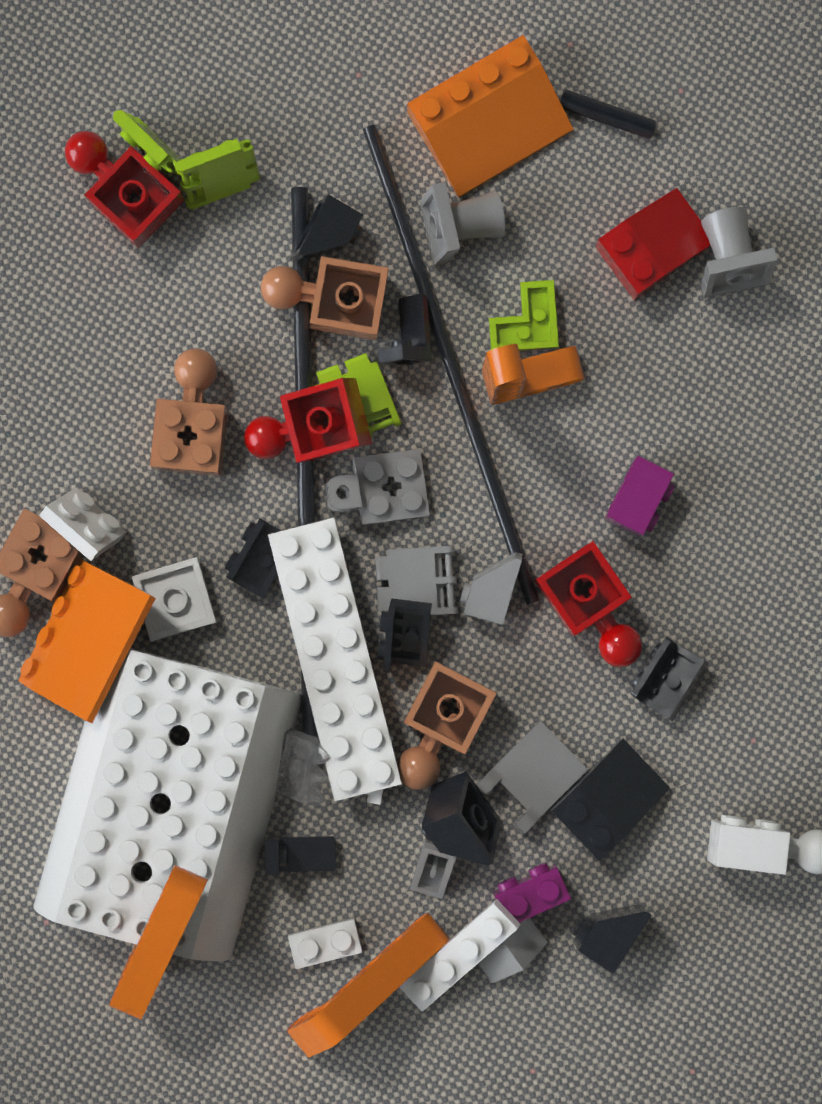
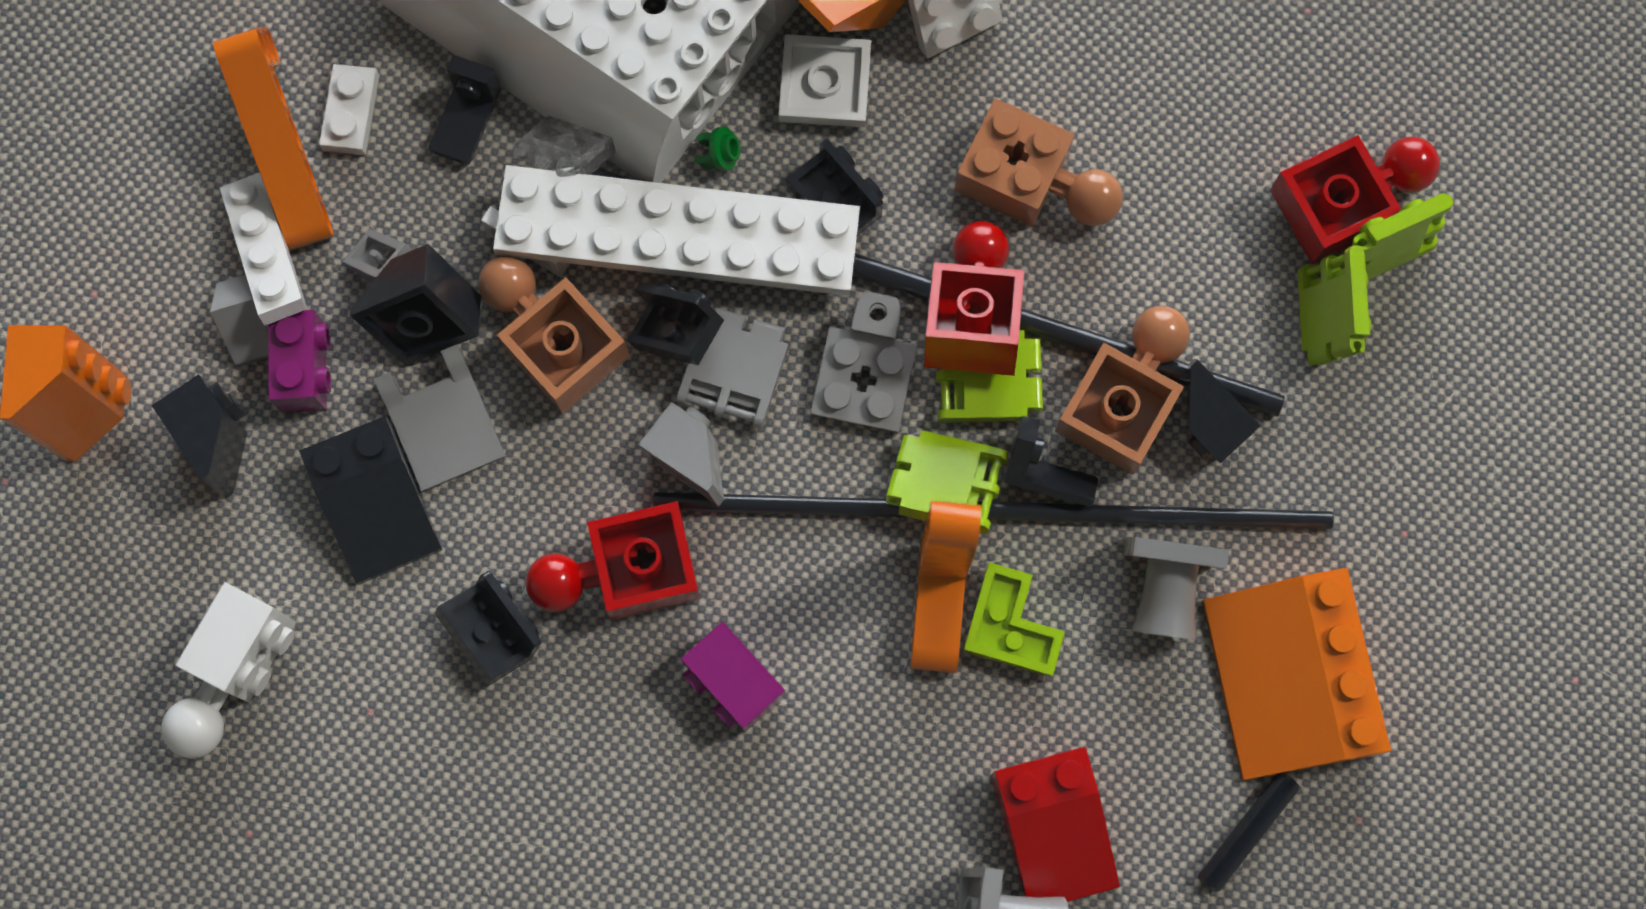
camera: 110 degrees right, 10 degrees down
(254, 653) = (723, 149): none -> green plate
(444, 401) = (944, 471): none -> lime plate
(626, 1043) = (60, 389): none -> orange slope

